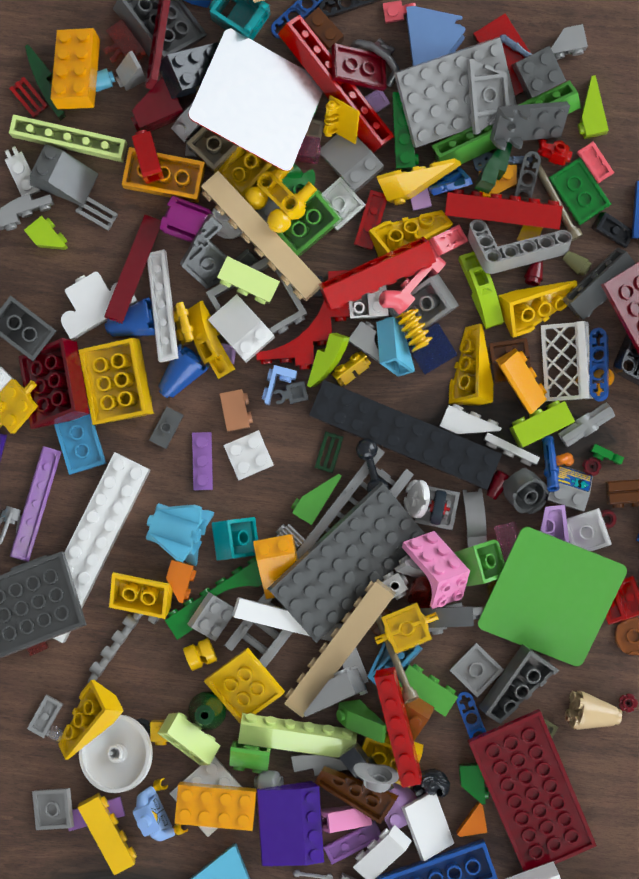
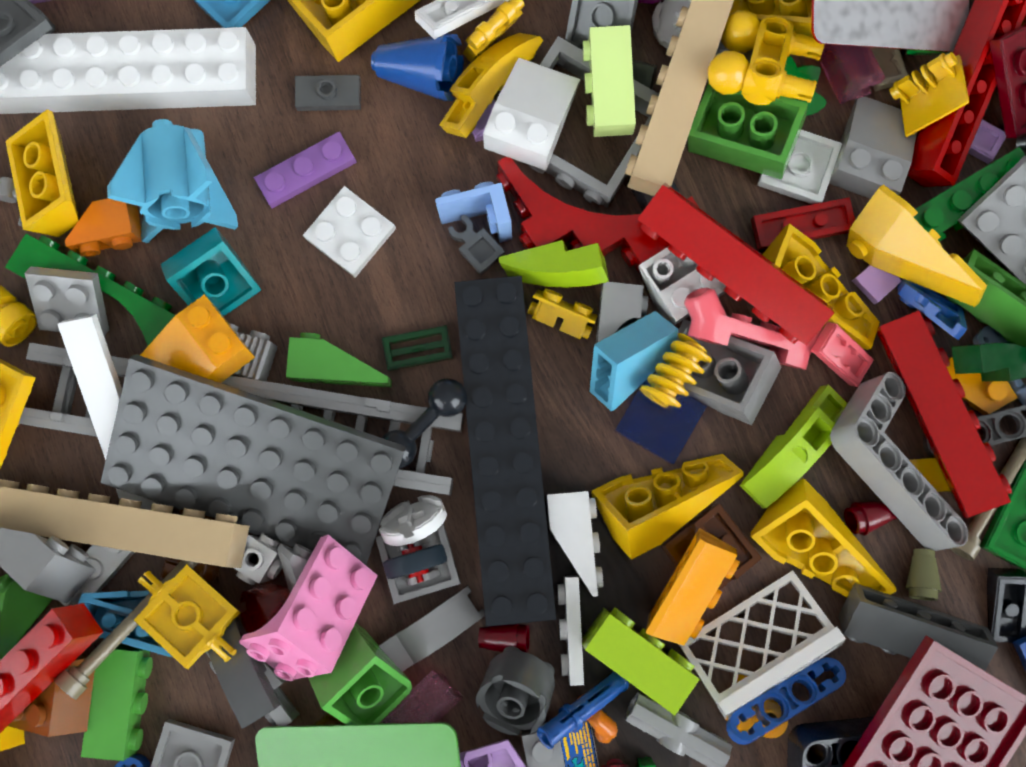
camera: 60 degrees right, 5 degrees down
(235, 410) = (405, 174): nougat brick -> none

